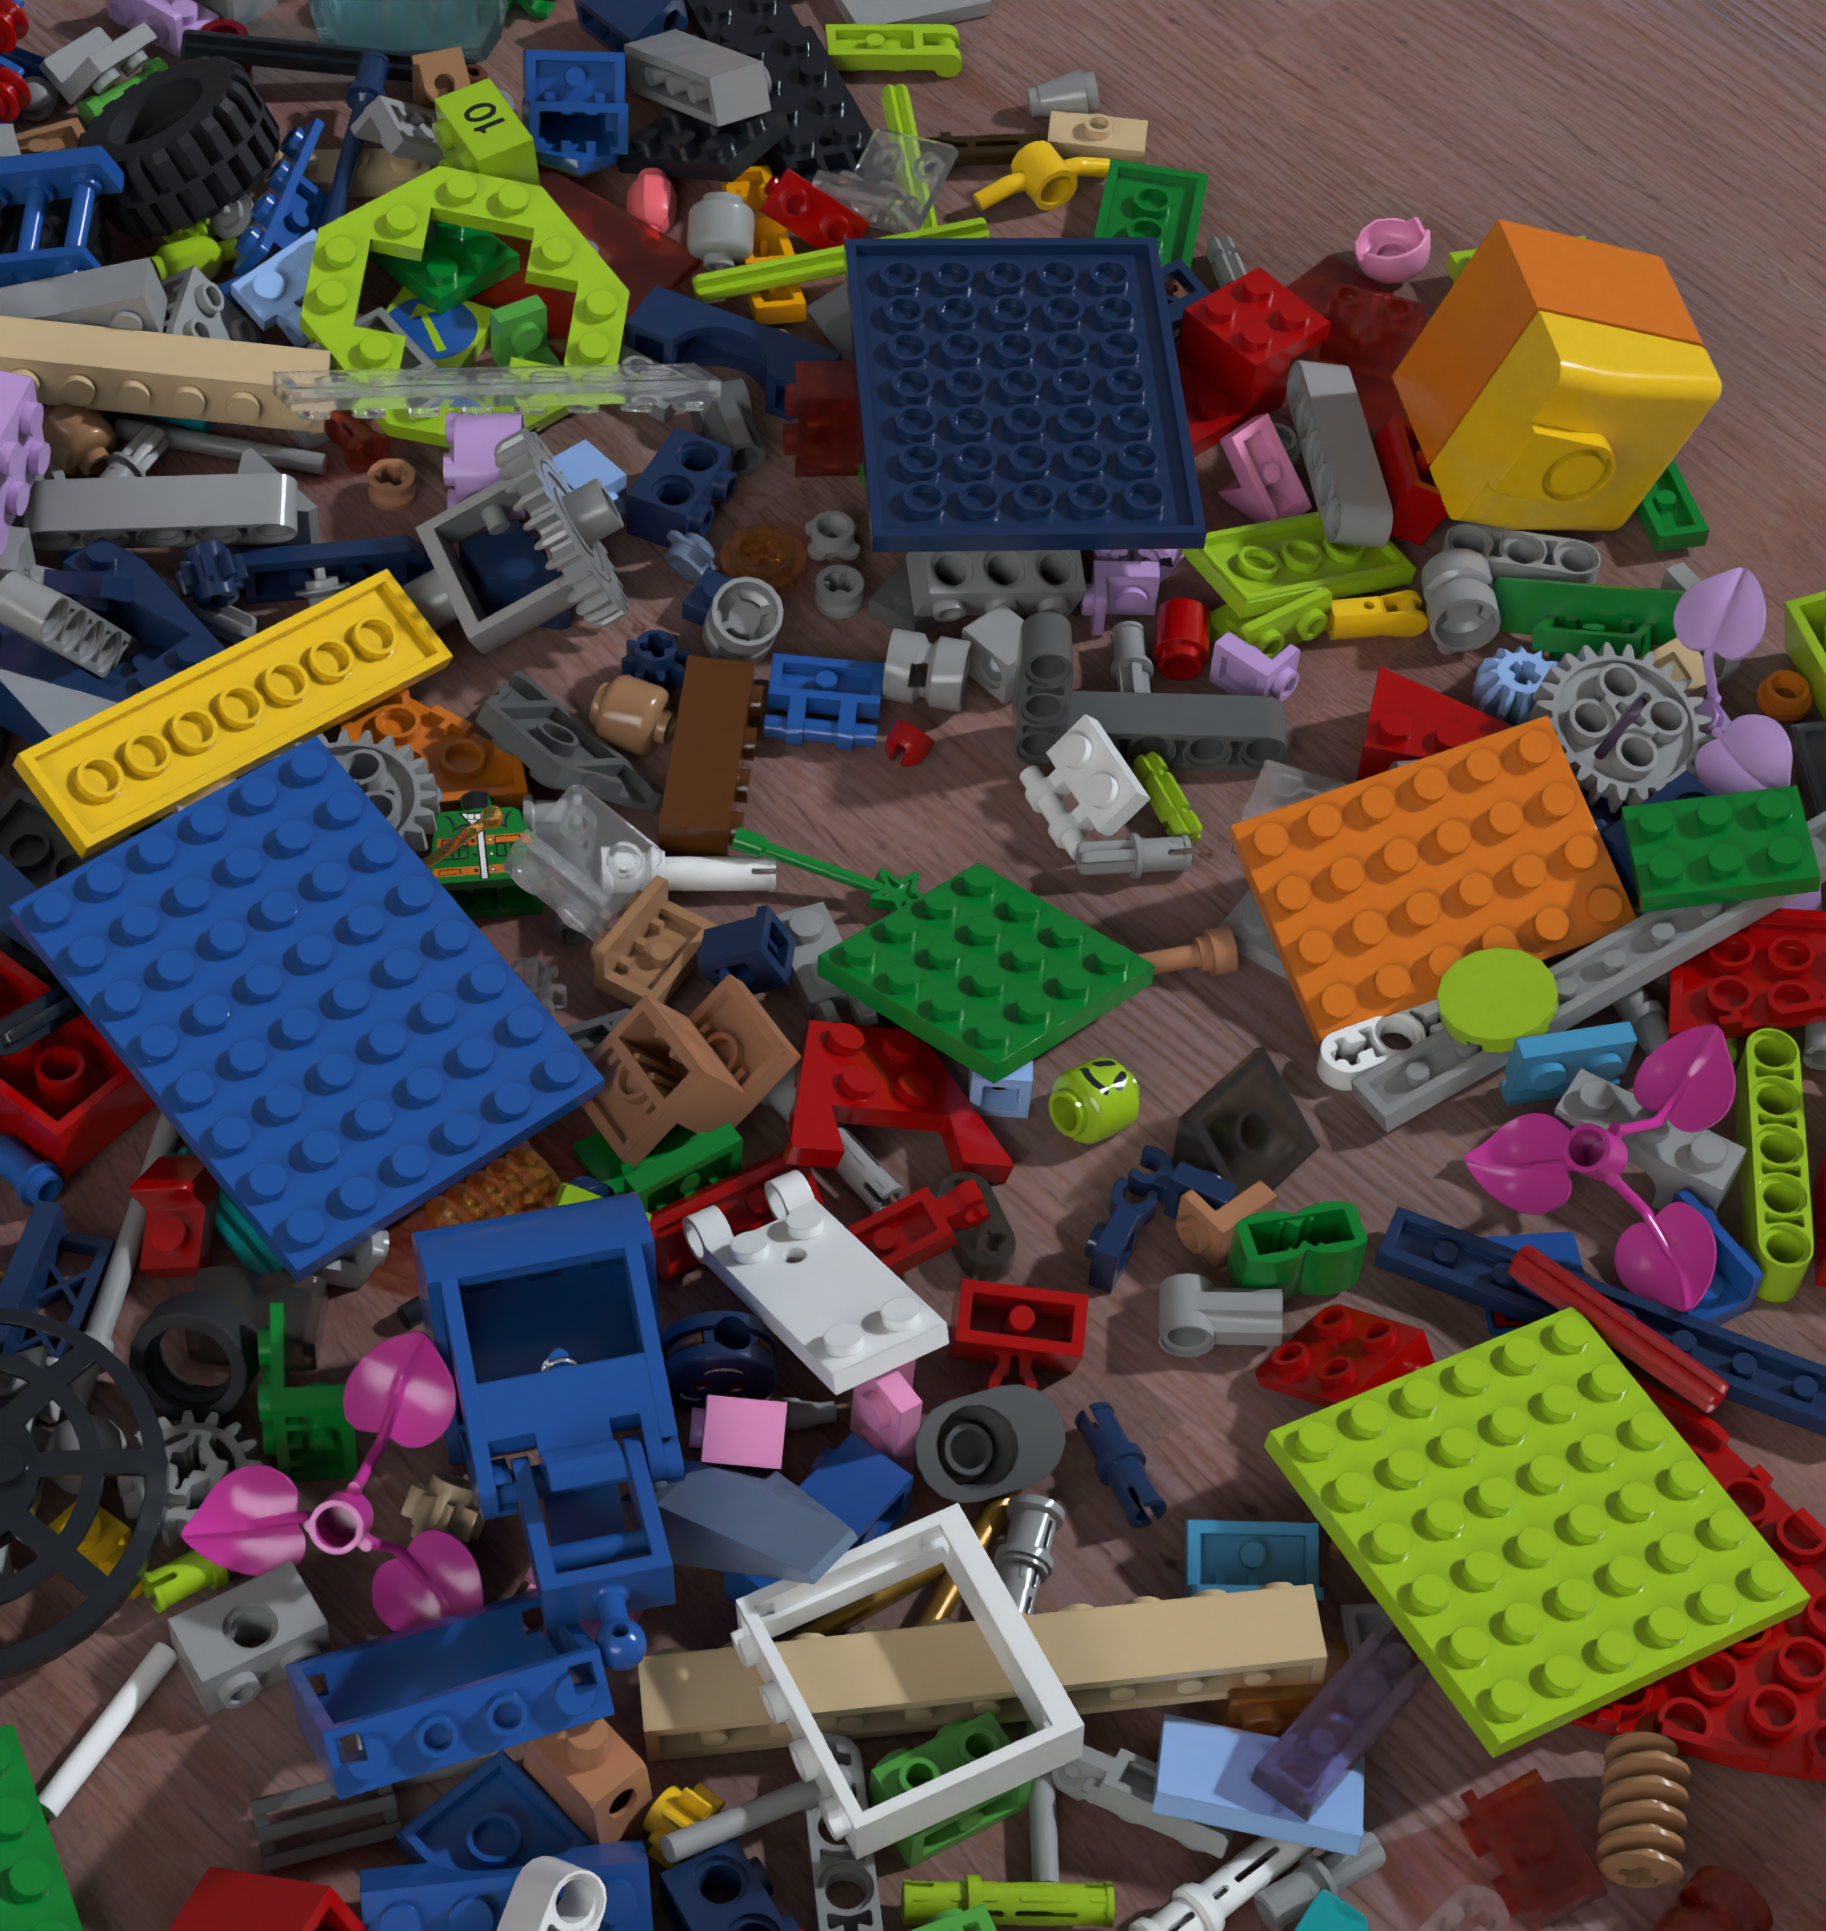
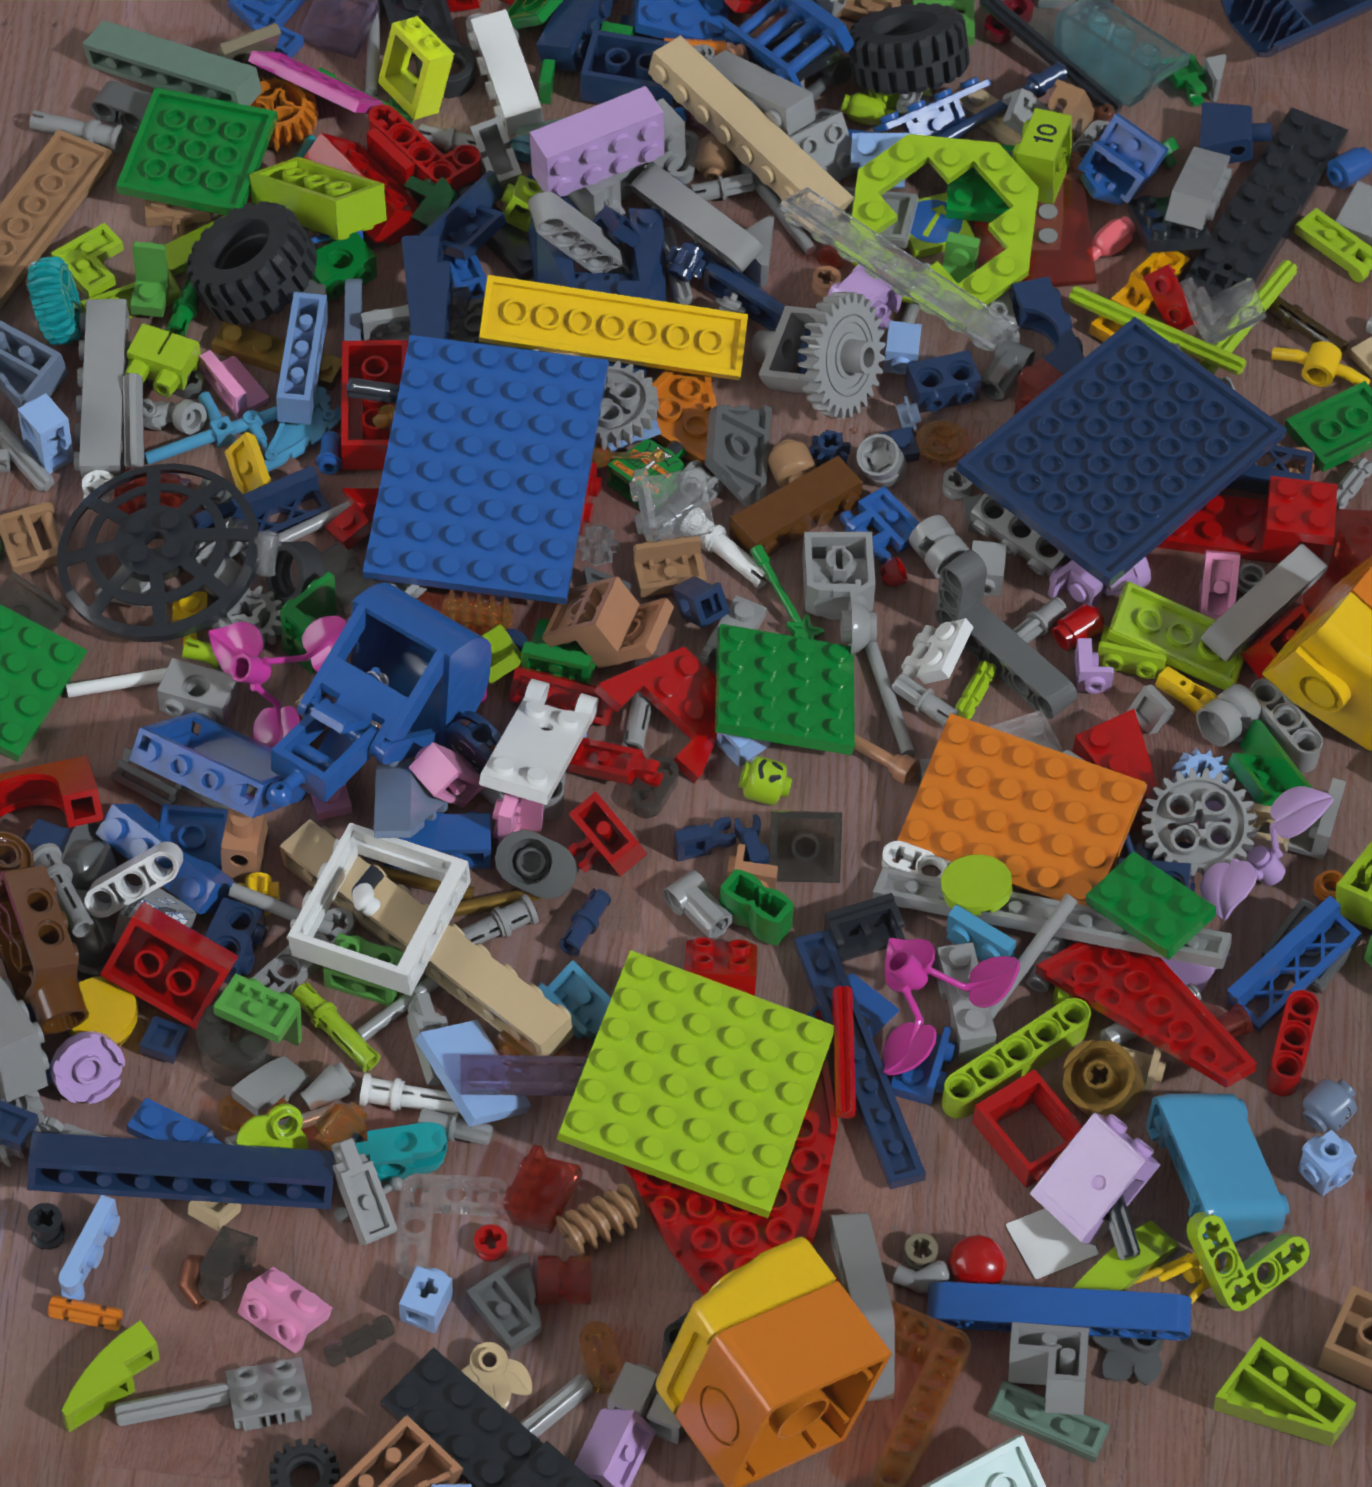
camera: 50 degrees right, 5 degrees up
(85, 1045) = (385, 418): none -> clear yellow hand
(134, 1350) = (267, 548): none -> clear pin
(720, 230) = (1112, 273): light grey head -> none
(881, 796) = (841, 583): none -> light grey brick
(888, 1671) = (363, 891): none -> white arm
(1088, 889) = (889, 699): none -> light grey bar
(1365, 655) = (1152, 709): none -> light grey tile
(1427, 1164) = (864, 926): none -> black hinge
(1648, 979) = (1038, 944): none -> light grey bar

